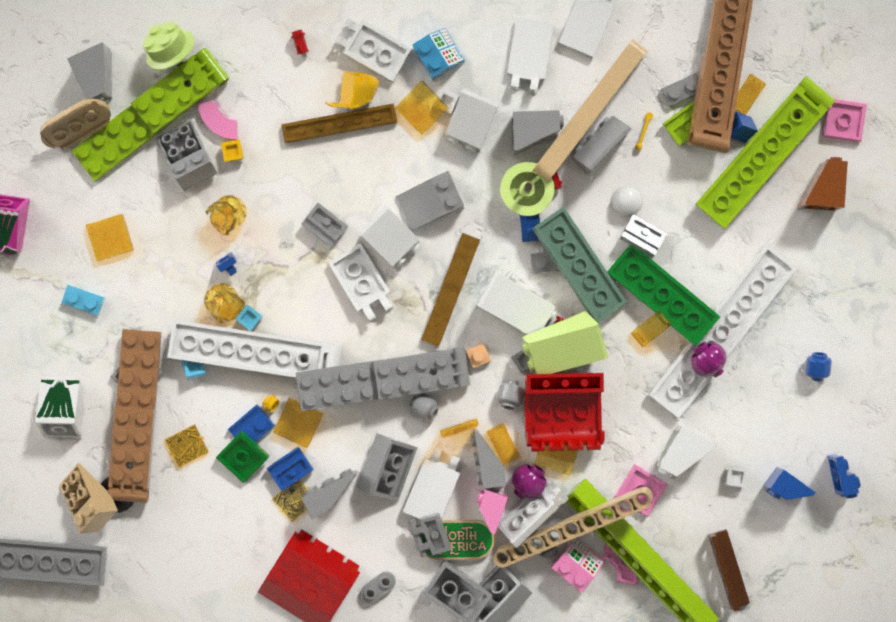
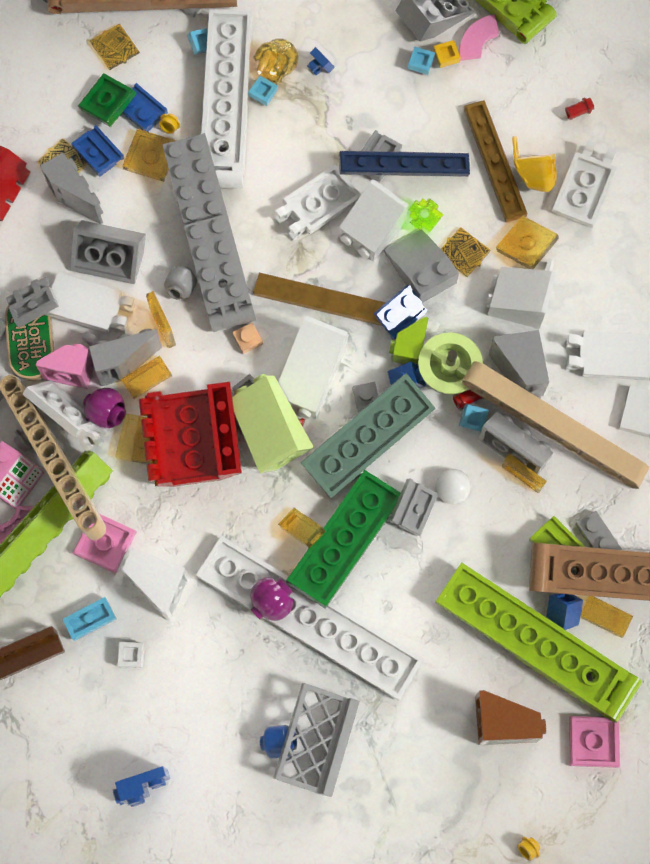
camera: 80 degrees right, 15 degrees down
(227, 213) = (376, 55): clear yellow hair -> none
(236, 174) = (421, 60): none -> medium azure plate
(336, 203) = (403, 163): none -> dark blue tile
(388, 191) = (426, 223): none -> clear neon green brick
(421, 162) = (465, 251): none -> clear yellow piece
(437, 53) = (593, 252): dark azure slope -> none
(467, 486) = (90, 339): none -> light grey tile
(472, 224) = (400, 311): none -> plate
(501, 219) = (409, 342): none -> lime slope
(510, 395) = (202, 374): light grey head -> none
(572, 175) = (473, 417): none -> medium azure plate
(624, 142) = (524, 473): none -> clear yellow tile
(648, 117) = (559, 501): yellow hinge -> none
(703, 507) = (89, 619): none -> medium azure plate
(785, 486) = (123, 715): blue slope -> none
(824, 321) = (336, 740): none -> light grey fence

